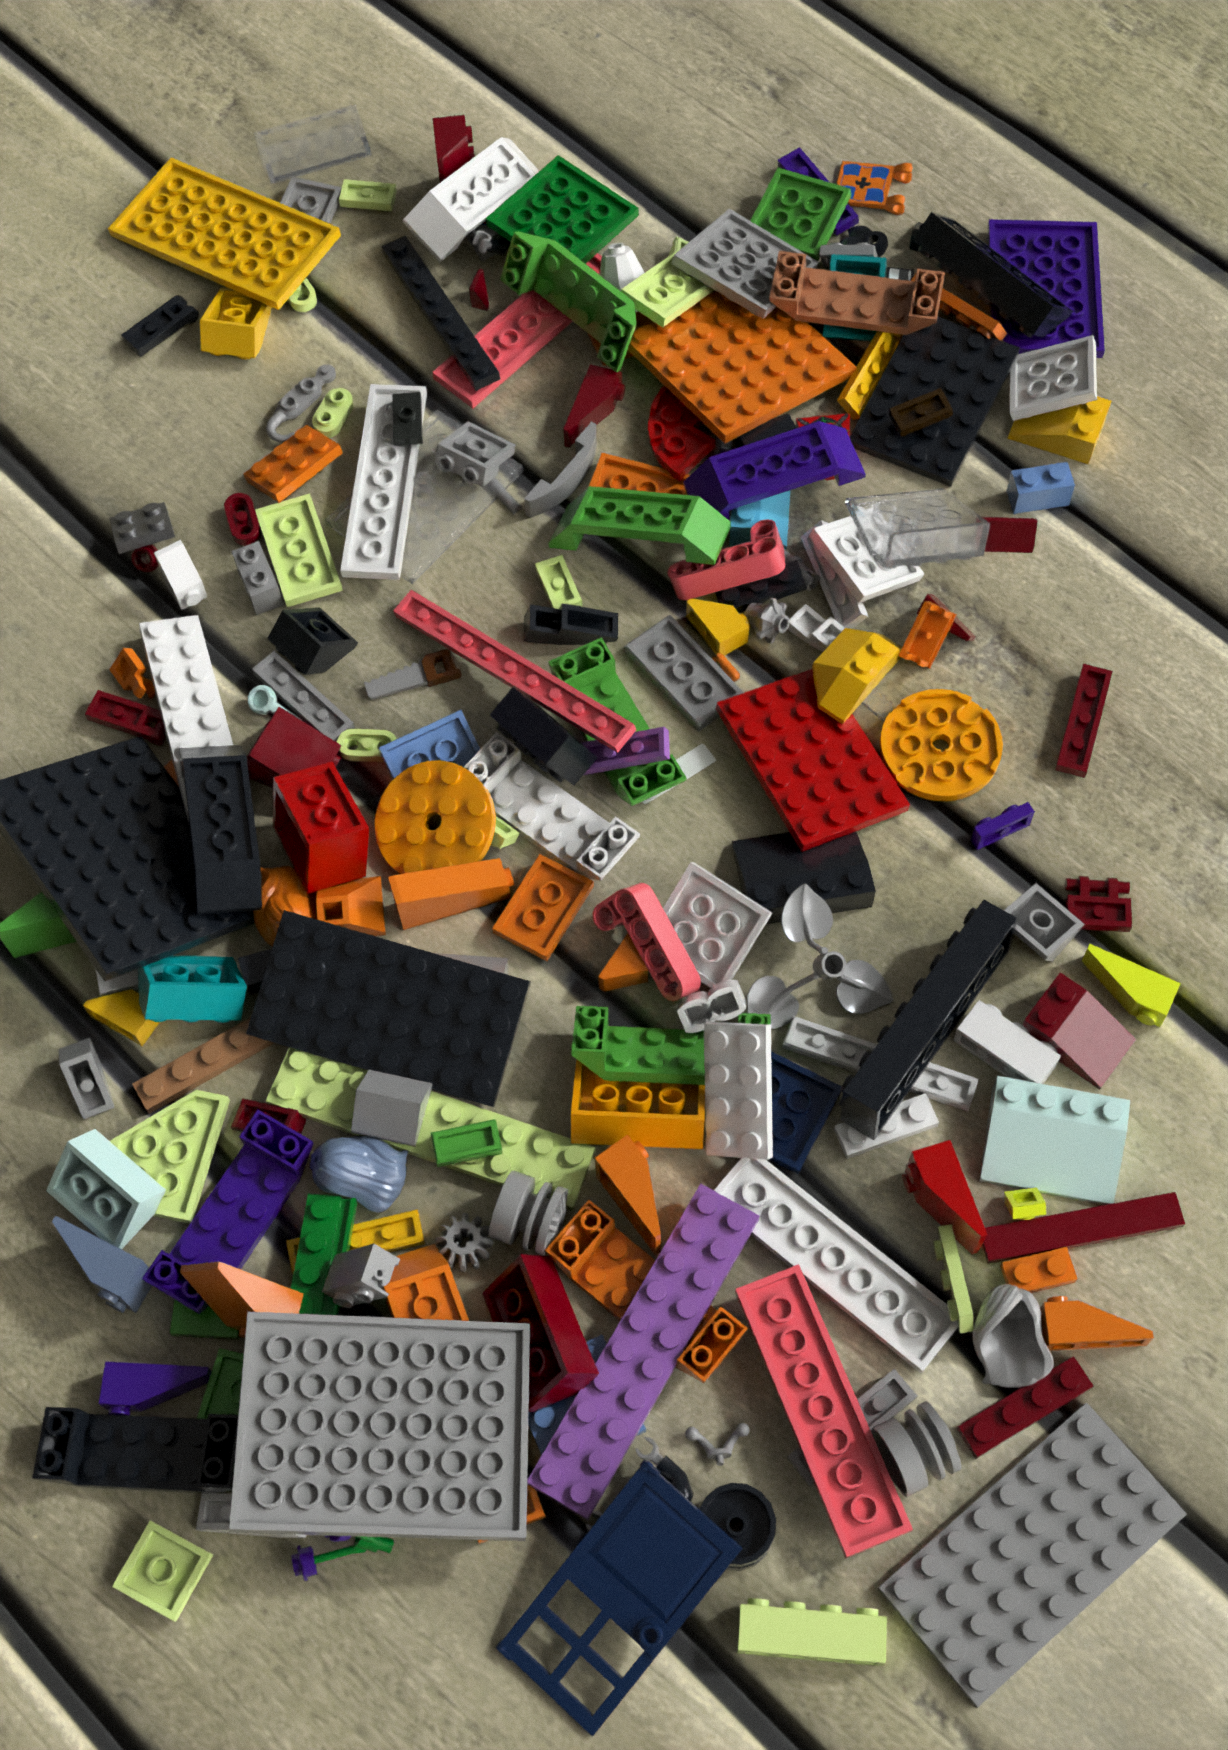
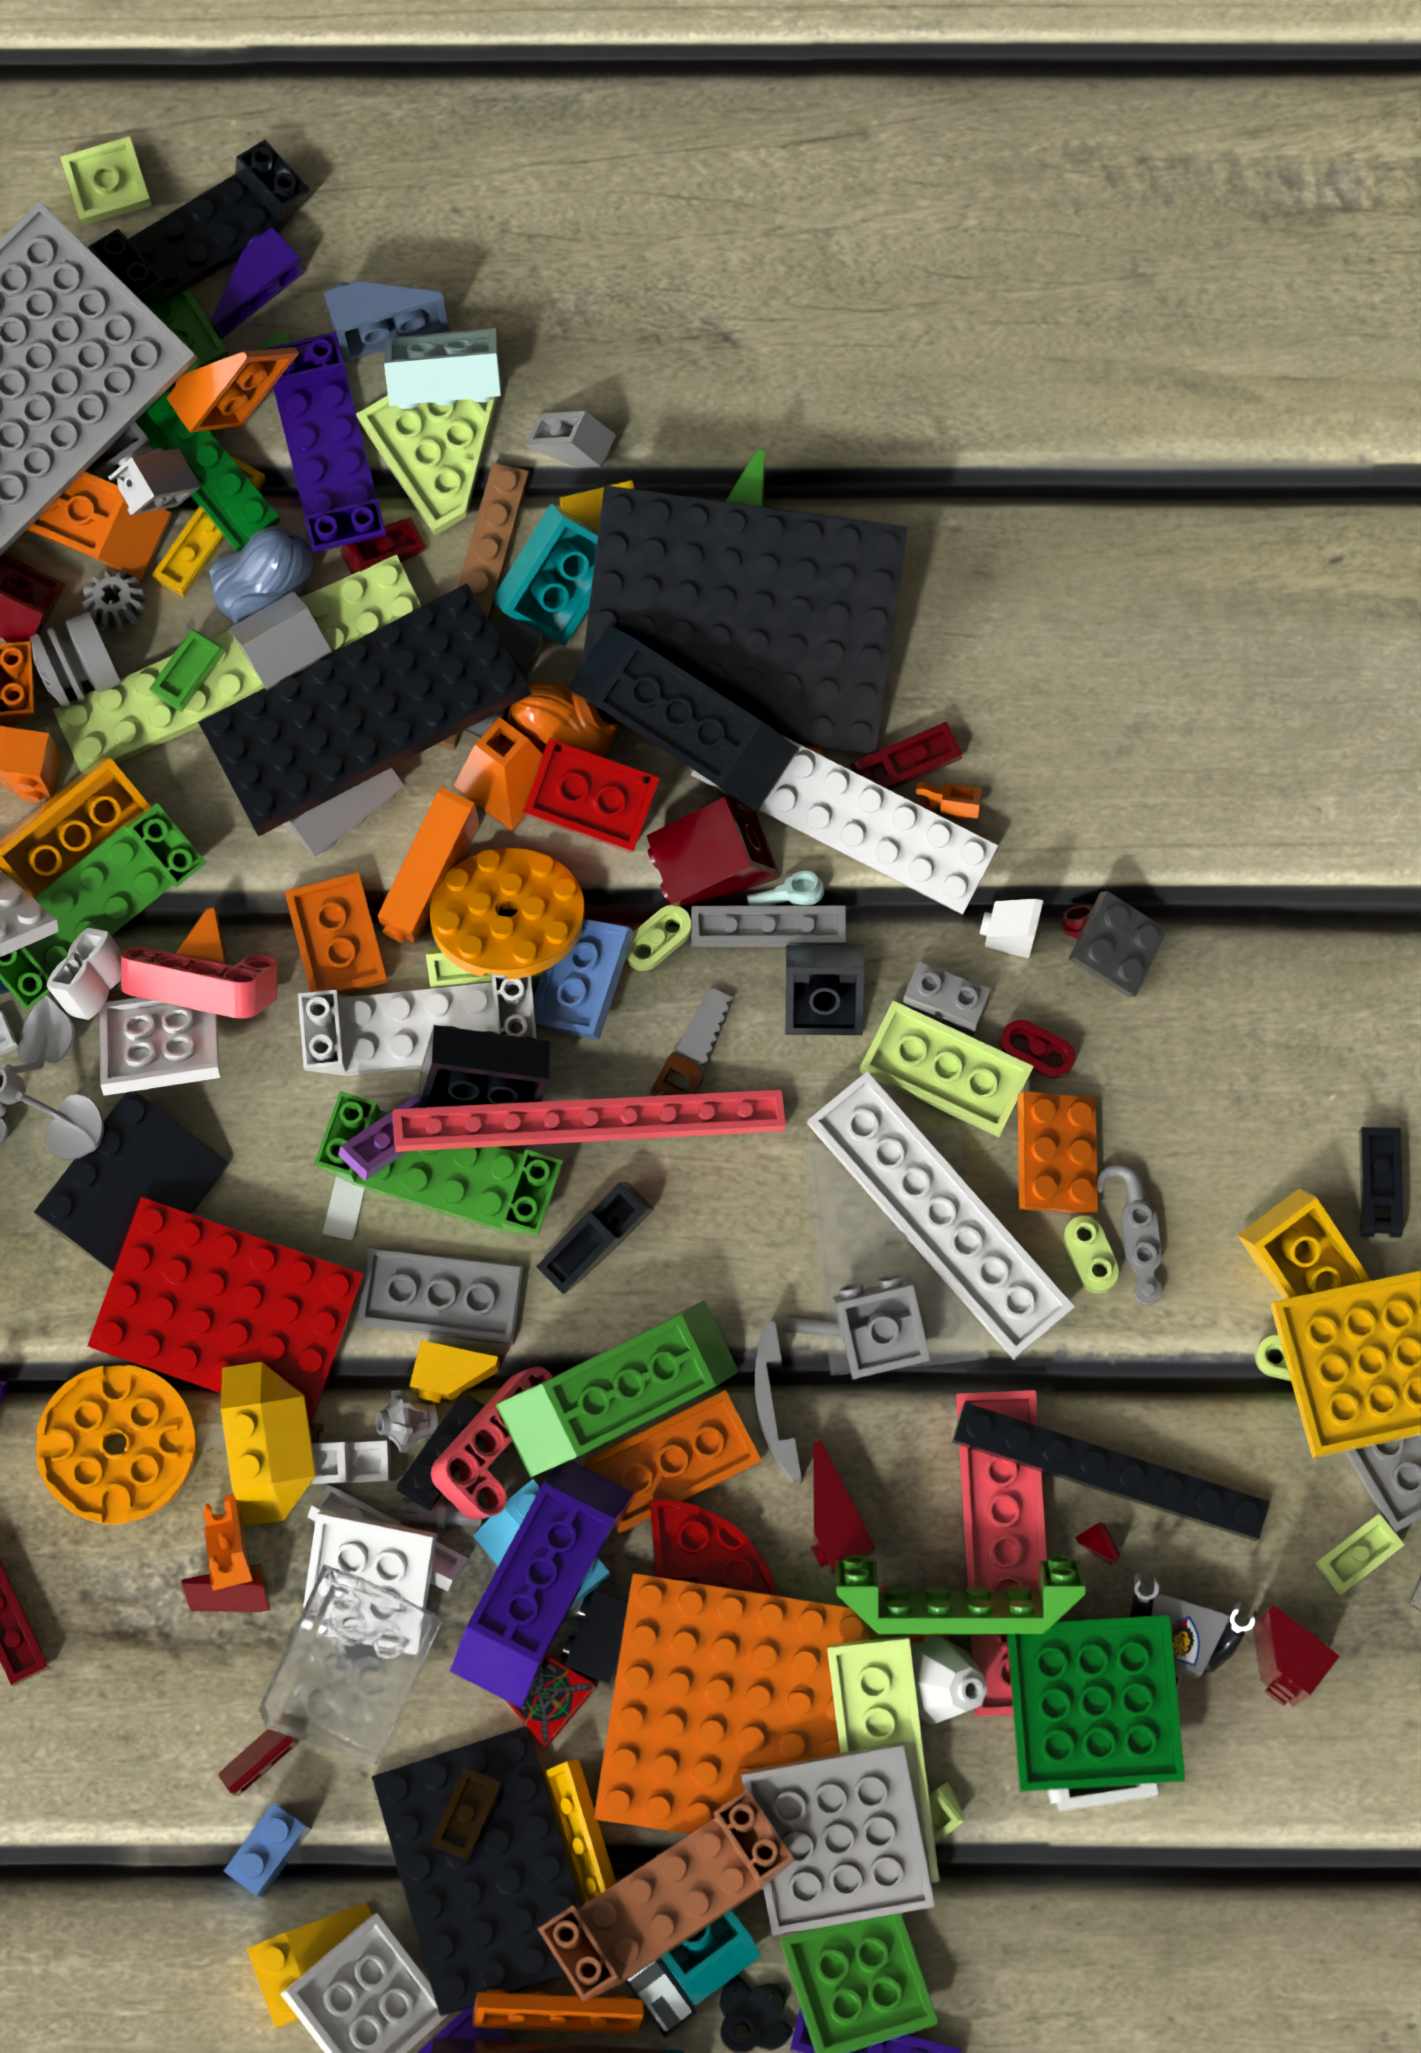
camera: 135 degrees right, 10 degrees up
(407, 418) = (985, 1295): pearl dark grey plate -> none
(469, 197) = (1218, 1649): white slope -> none
(557, 582) = (652, 1270): yellowish green plate -> none
(727, 667) = (402, 1340): orange piece -> none
(859, 249) = (758, 1968): light grey plate -> none

